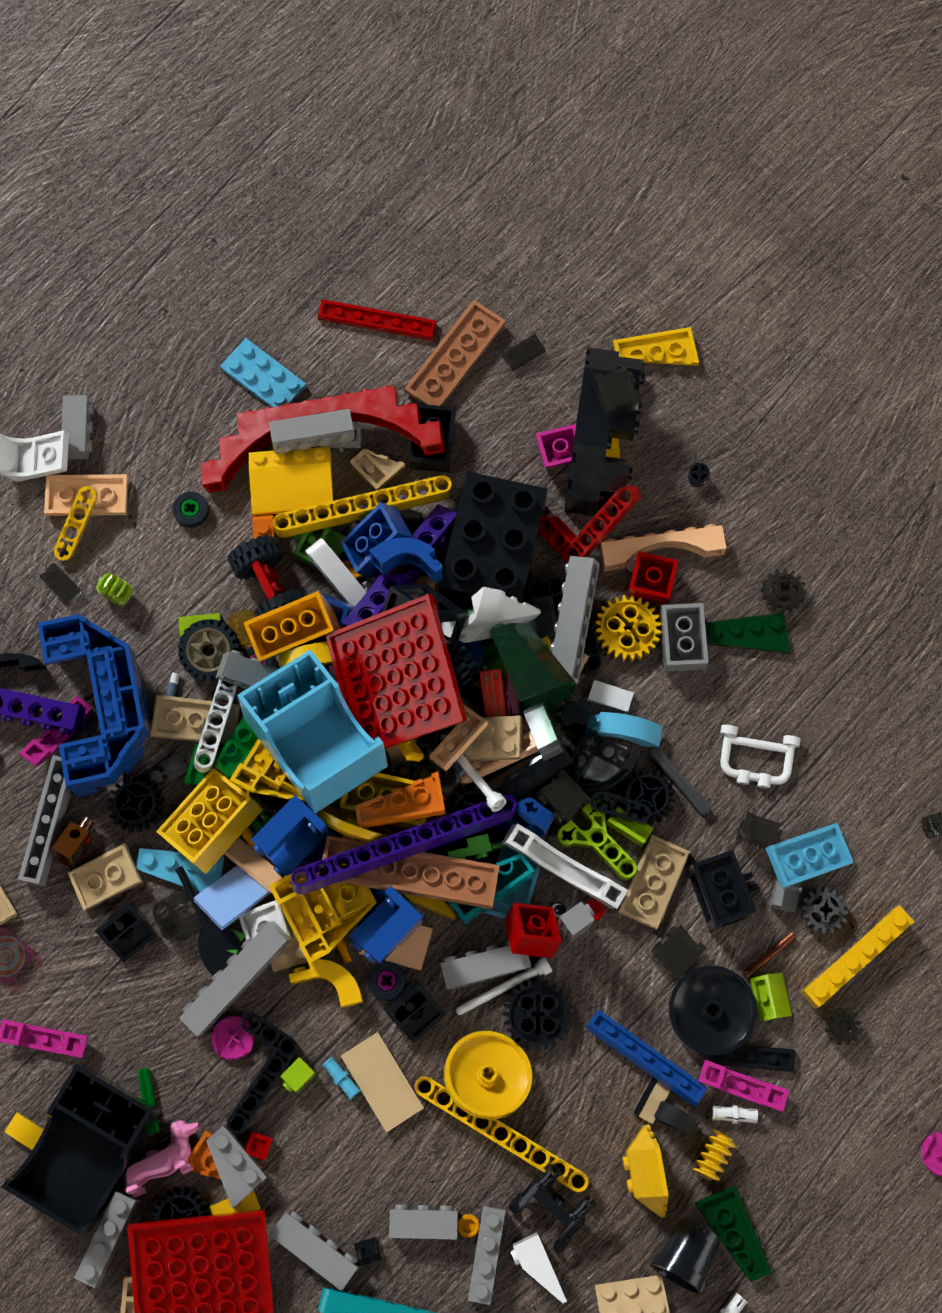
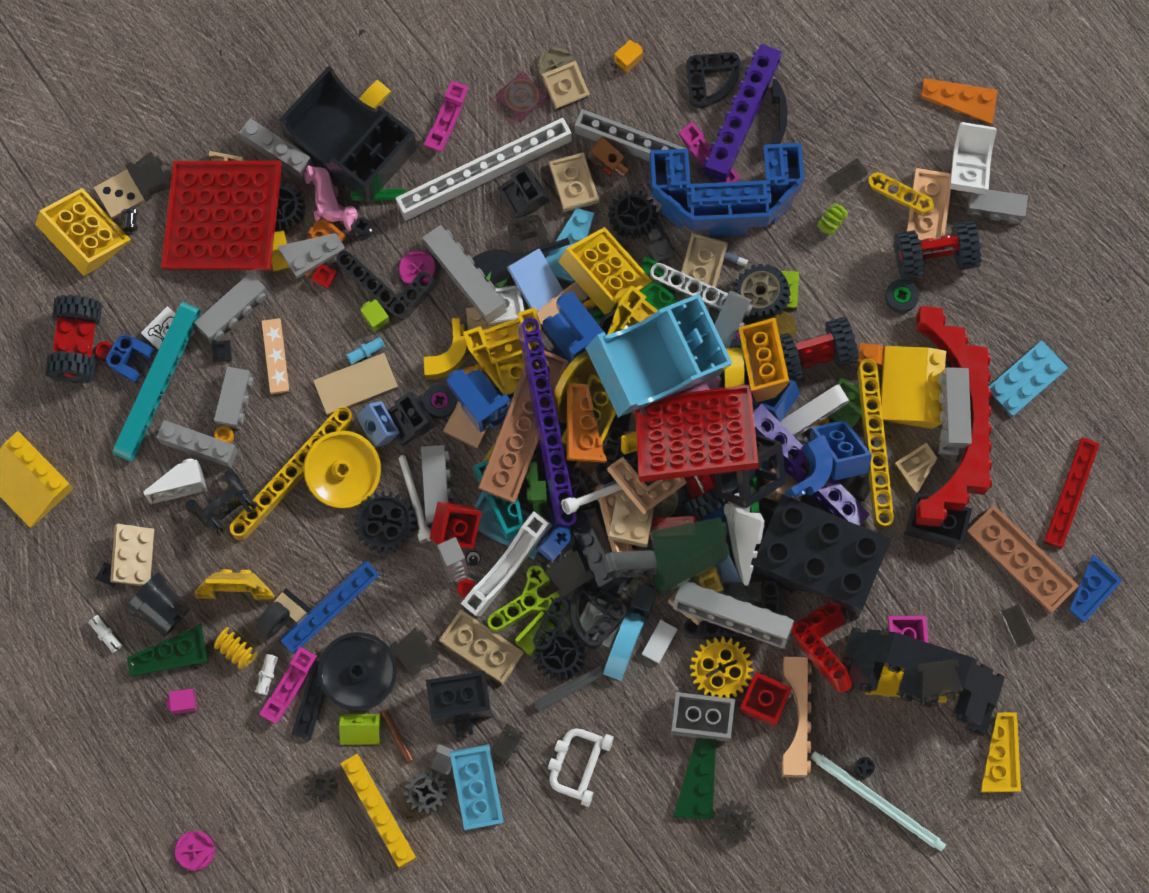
camera: 100 degrees right, 0 degrees up
(104, 982) = (484, 169): none -> white brick
(126, 451) = (961, 243): none -> black plate
(199, 1114) = (362, 234): none -> black bush
(363, 1184) = (275, 356): none -> light nougat tile
(428, 1044) = (377, 424): none -> medium blue brick
(472, 285) = (1094, 588): none -> blue wing
(728, 458) = (878, 801): none -> light aqua piece
(786, 1205) = (182, 701): none -> dark pink brick

